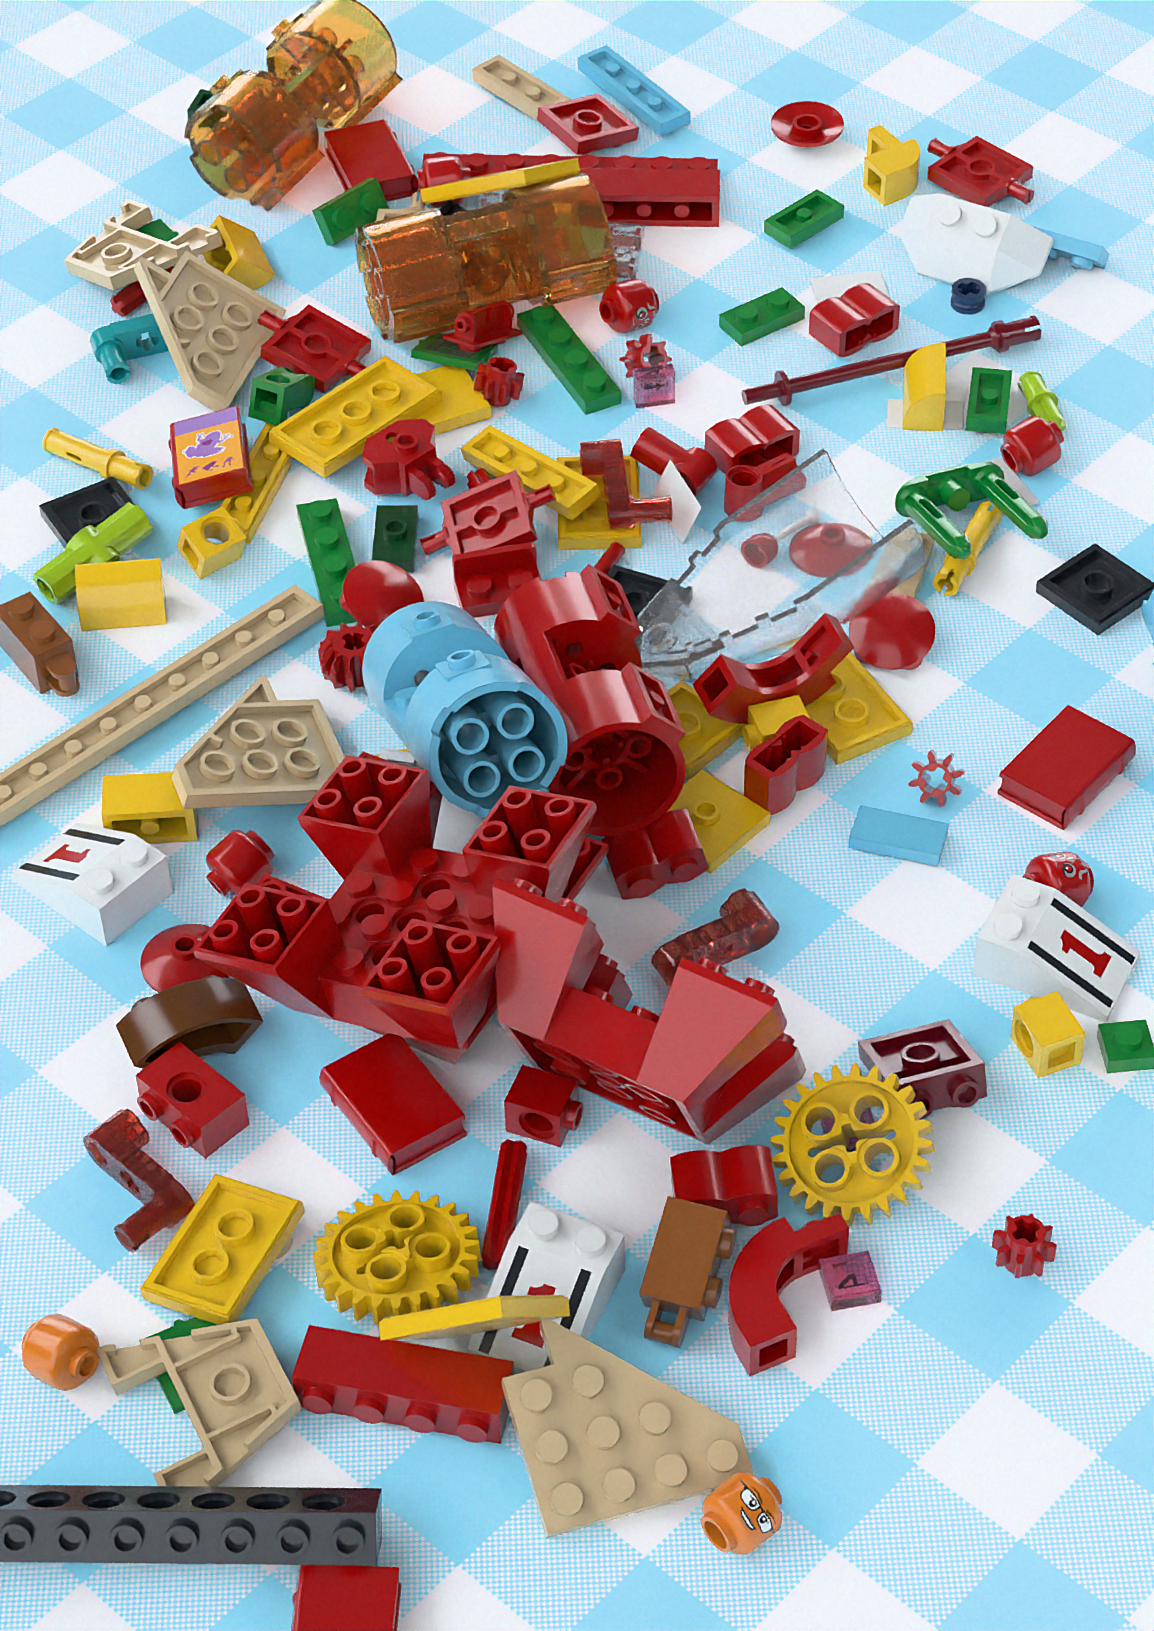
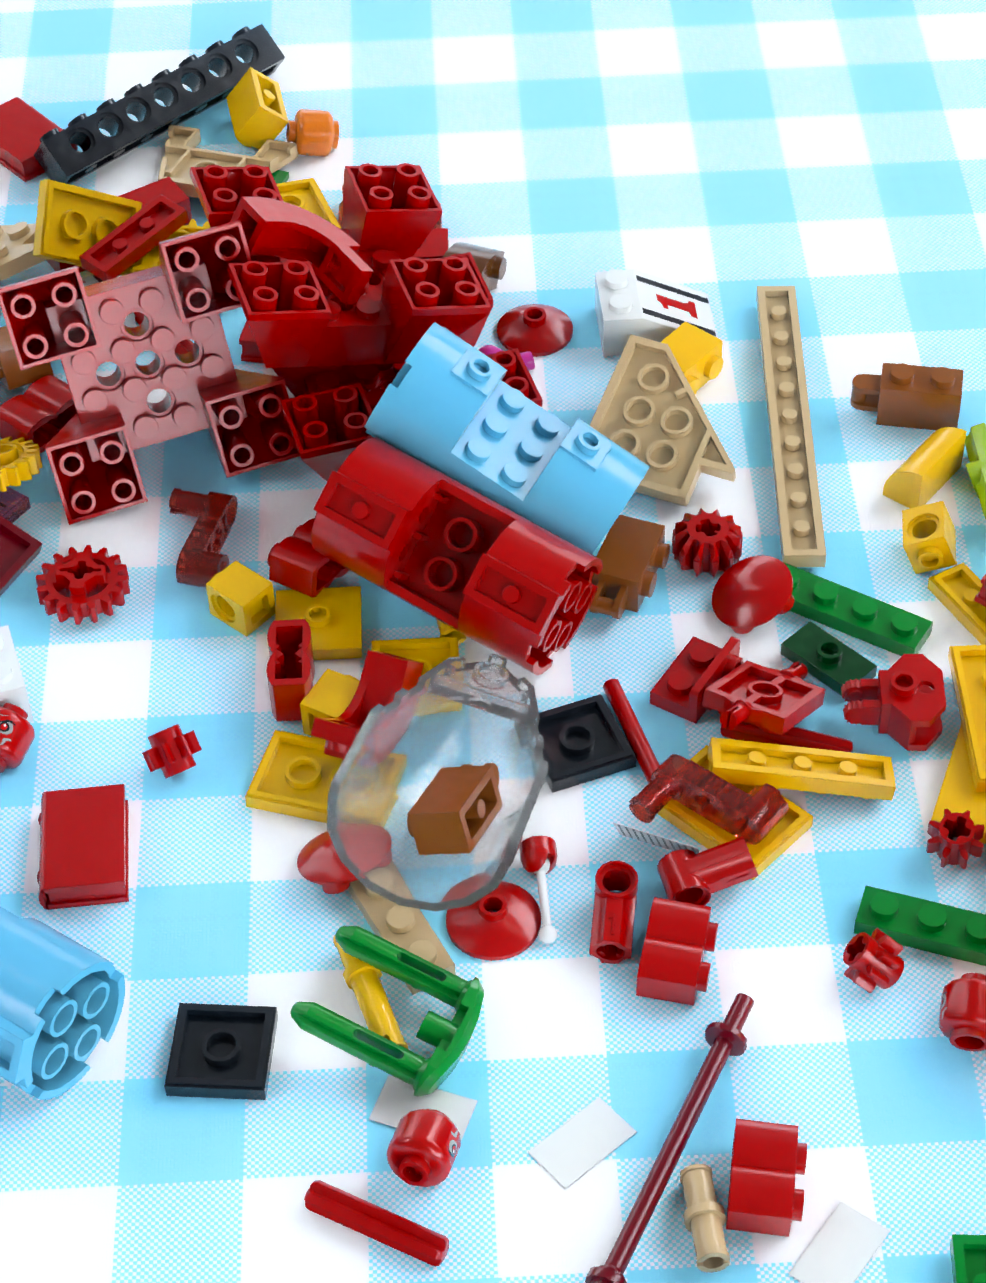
camera: 135 degrees right, 0 degrees up
(80, 1422) = (256, 109): none -> yellow brick
(237, 861) = (573, 374): red head -> none
(423, 891) = (300, 235): none -> red arch
(437, 1275) = (134, 238): none -> red plate
(654, 386) = (830, 943): clear pink tile -> none
(750, 863) = (241, 598): none -> yellow brick
(761, 316) = (861, 1128): green plate -> none
(785, 576) = (455, 809): none -> dark orange brick
(862, 974) = (83, 584): none -> red gear
(898, 835) = (165, 707): medium azure tile -> none
(908, 327) = (704, 1218): none -> tan pin
(925, 389) = (594, 1144): yellow brick -> none
(988, 400) = (528, 1185): green plate -> none
(1040, 399) = (476, 1228): lime axle -> none
(1097, 444) = (377, 1223): none -> red axle

